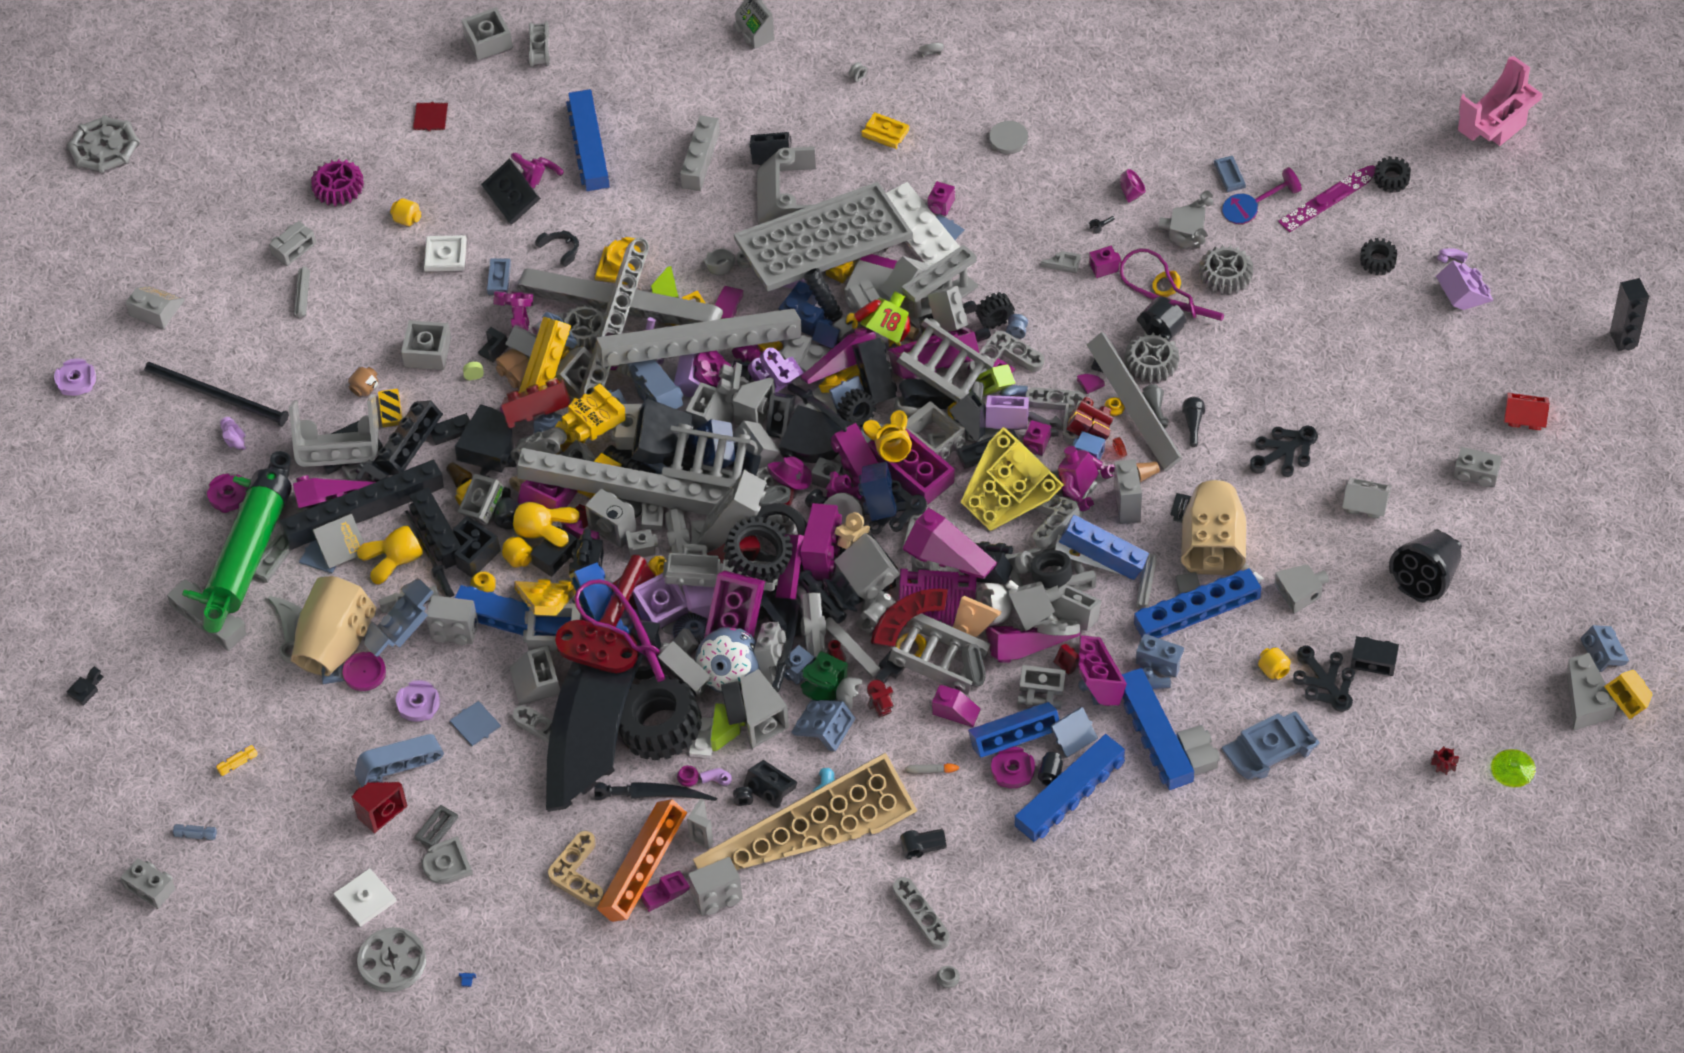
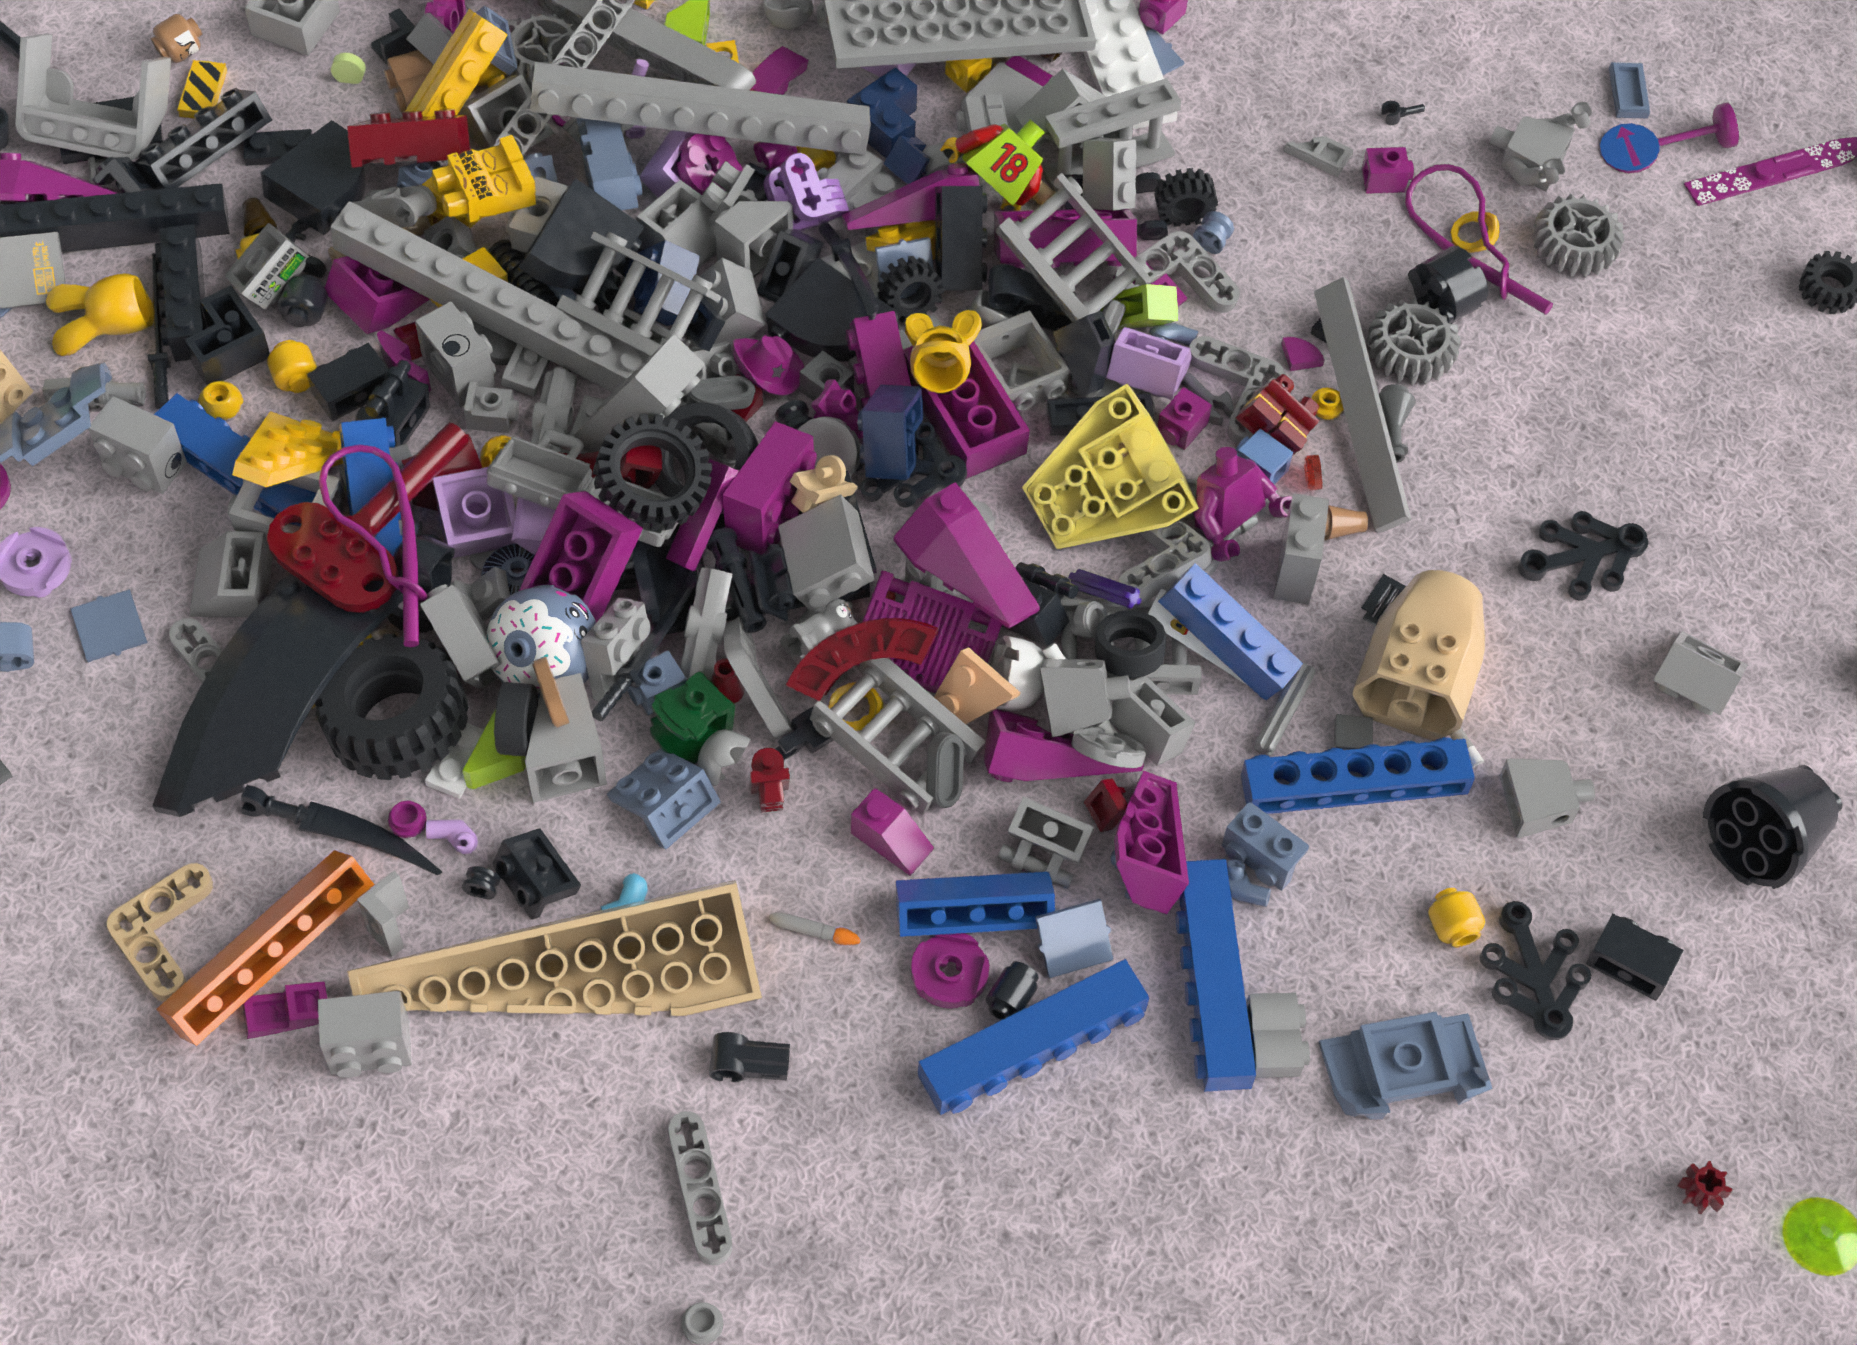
camera: 10 degrees right, 5 degrees up
(536, 521) = (338, 326): yellow piece -> none
(748, 682) = (550, 692): none -> medium nougat tile
(823, 294) = (923, 98): black piece -> none
(1028, 543) = (1105, 588): none -> dark purple axle
(1131, 185) = (1468, 65): magenta piece -> none
(1193, 409) = (1454, 445): black piece -> none

